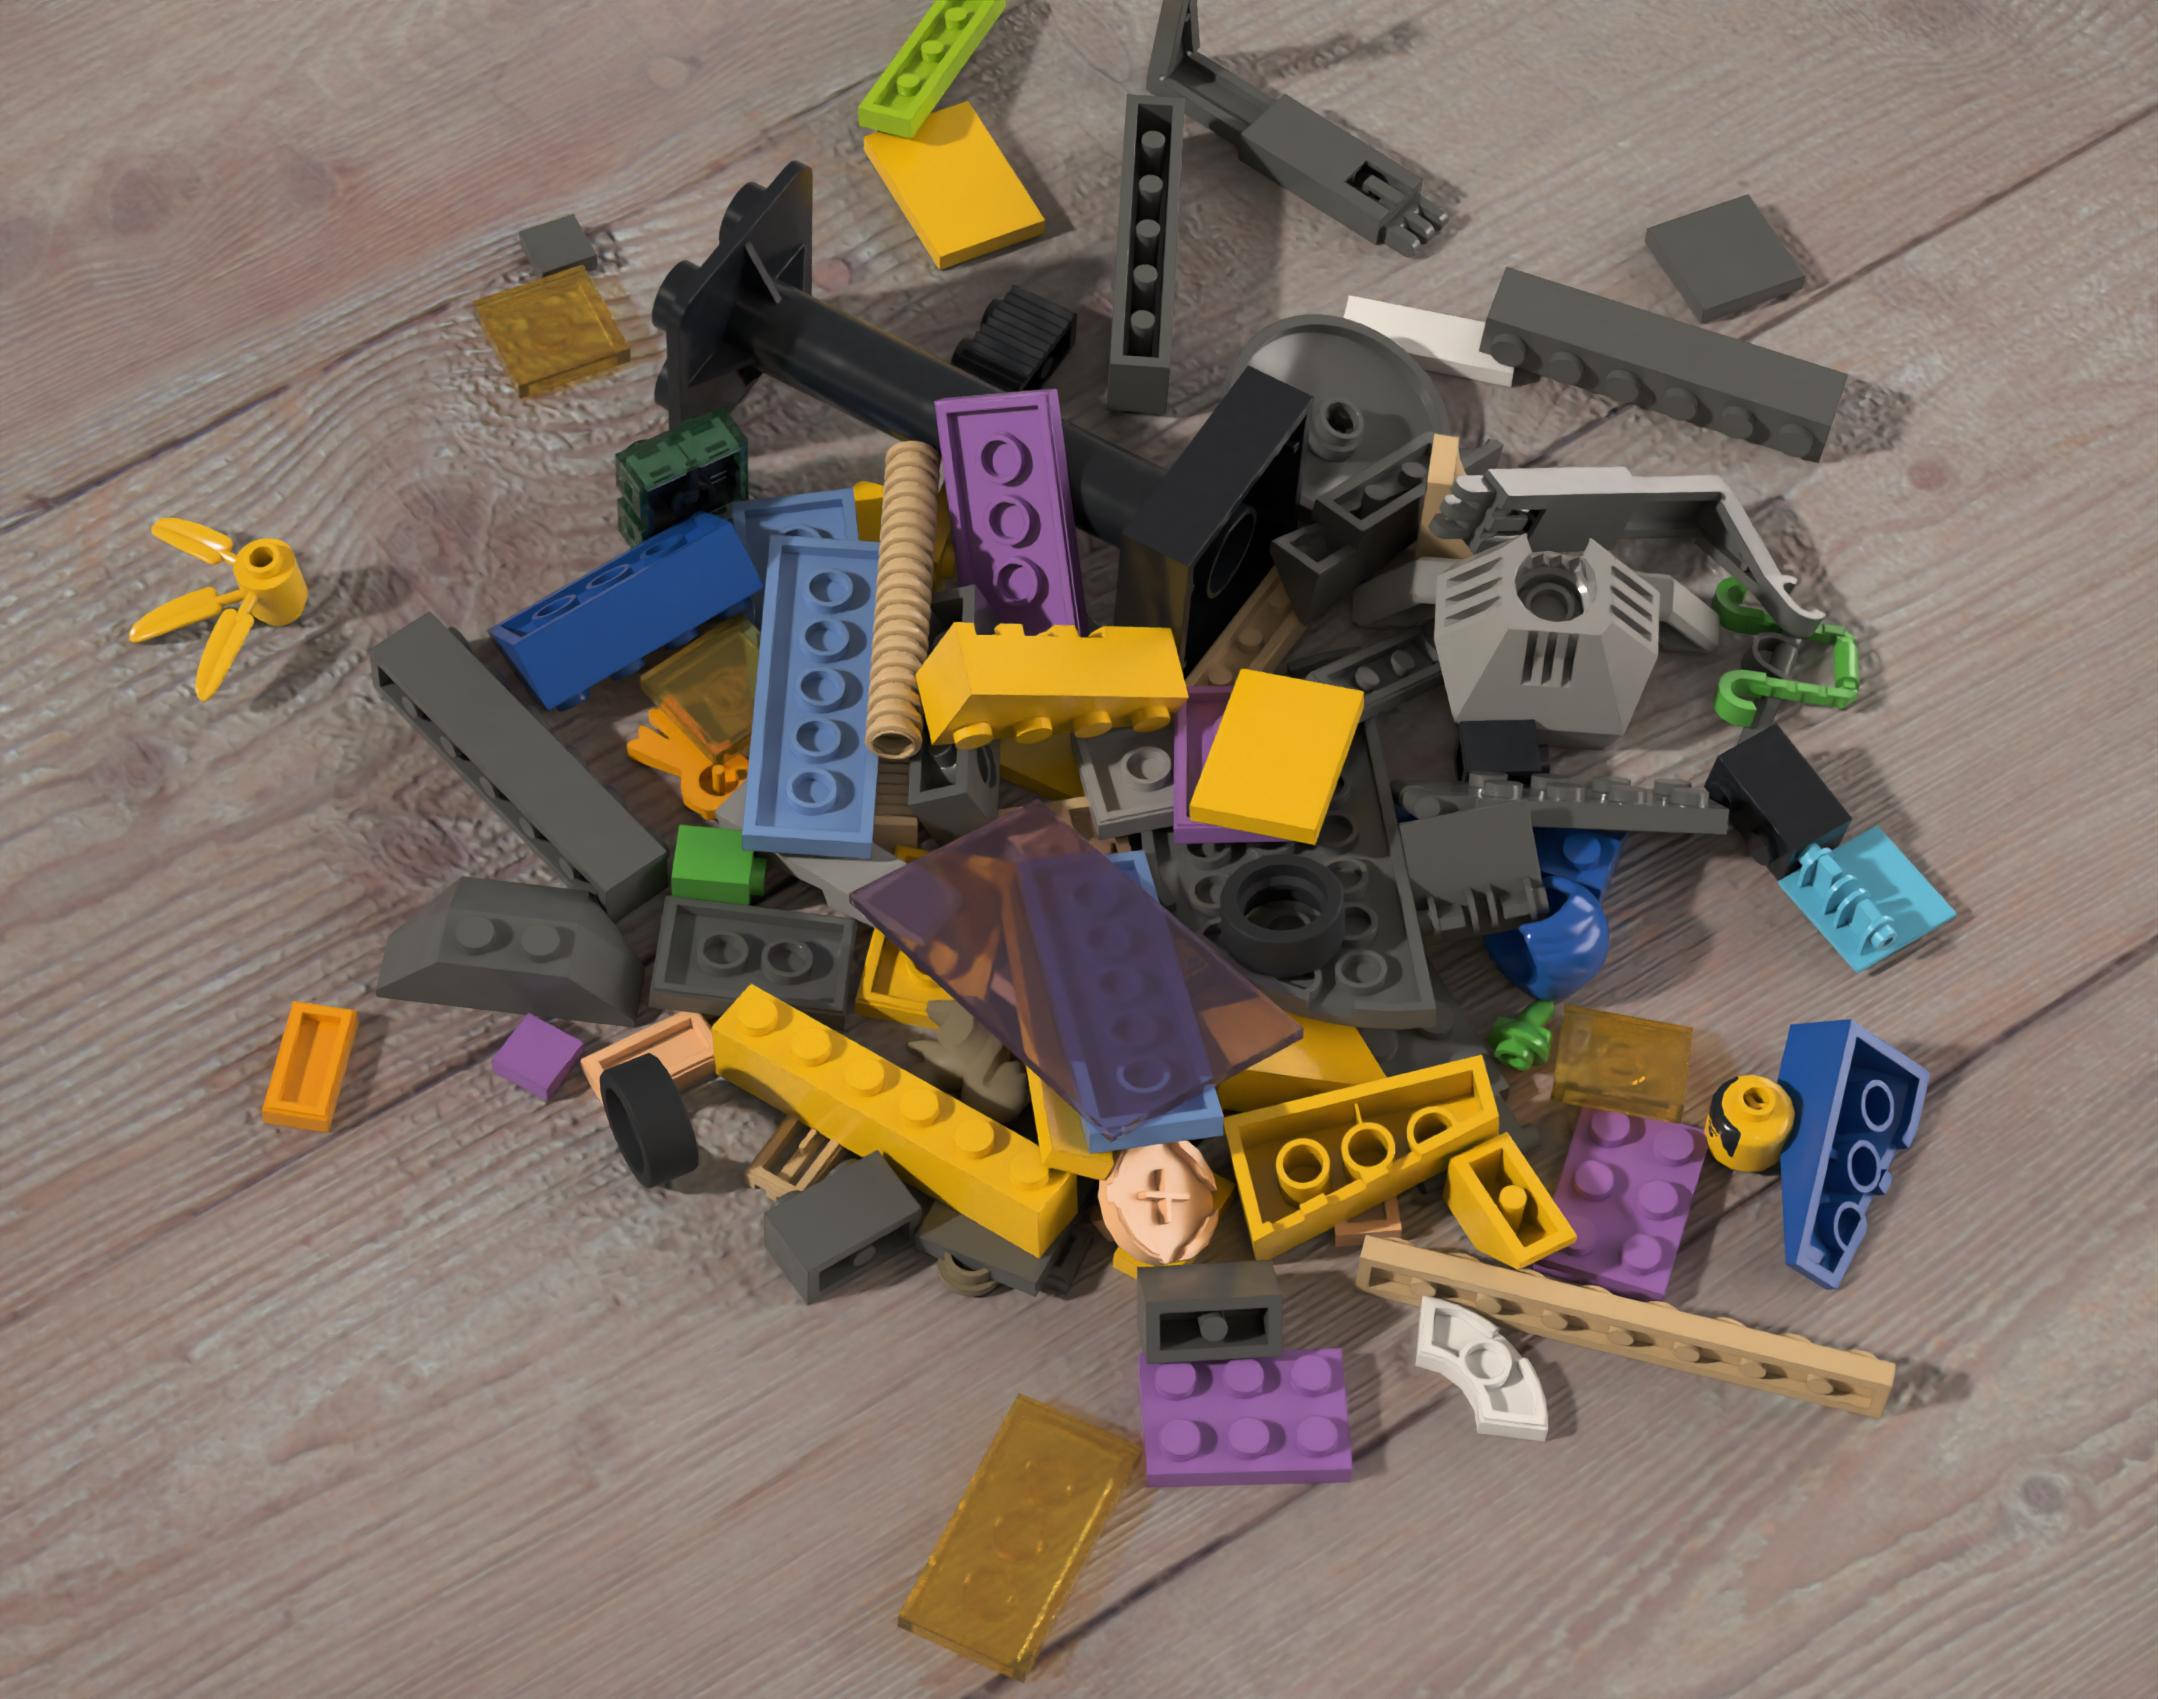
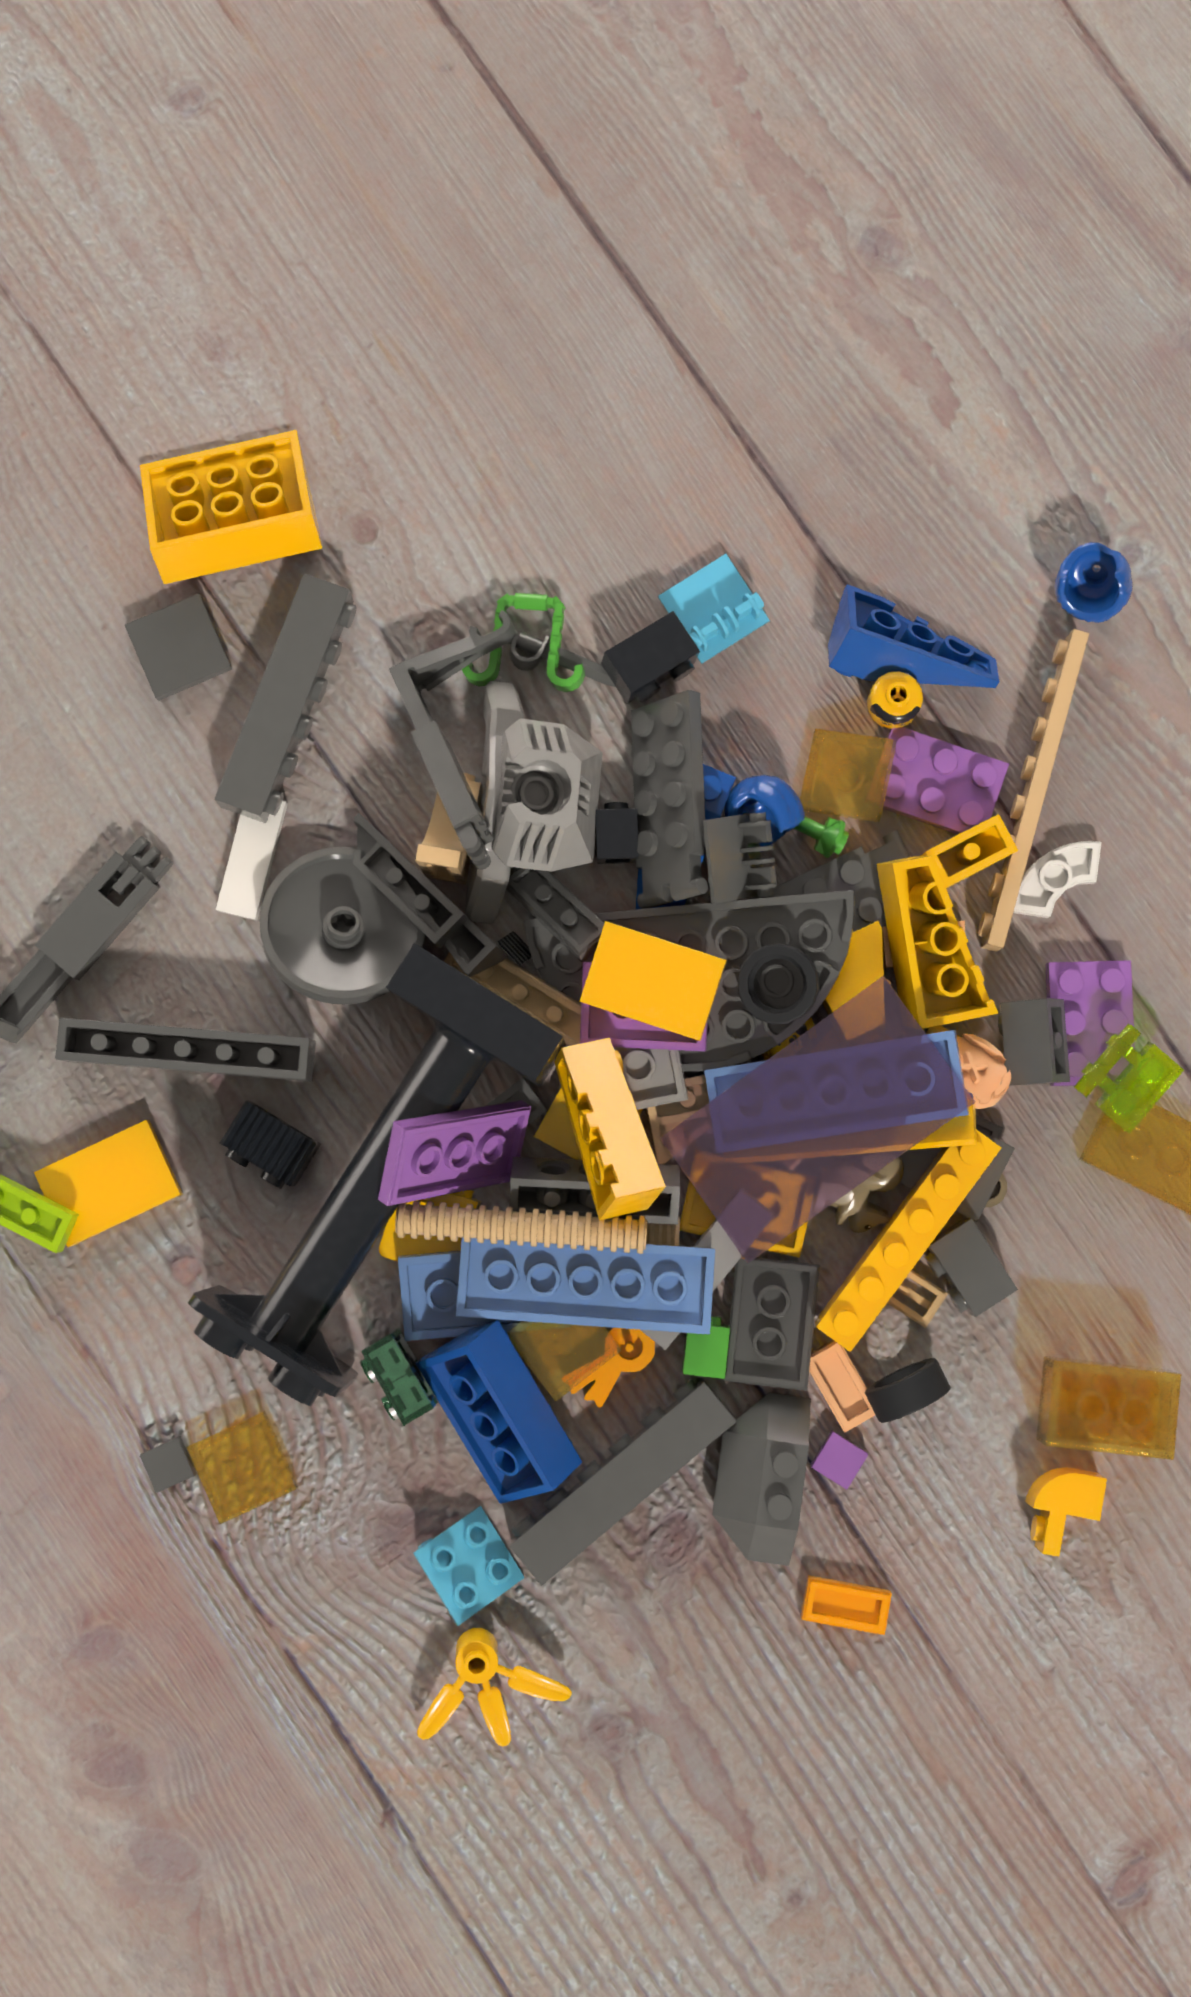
camera: 80 degrees left, 30 degrees up
(398, 575) = (468, 1565): none -> medium azure hinge
(466, 1349) = (1061, 1494): none -> yellow brick
(614, 1408) = (1108, 1407): none -> clear yellow brick
(1145, 1454) = (1138, 1085): none -> clear neon green plate
(1315, 633) = (515, 948): none -> sticker
(1933, 306) = (229, 507): none -> yellow slope
(1977, 1399) = (1102, 593): none -> blue piece

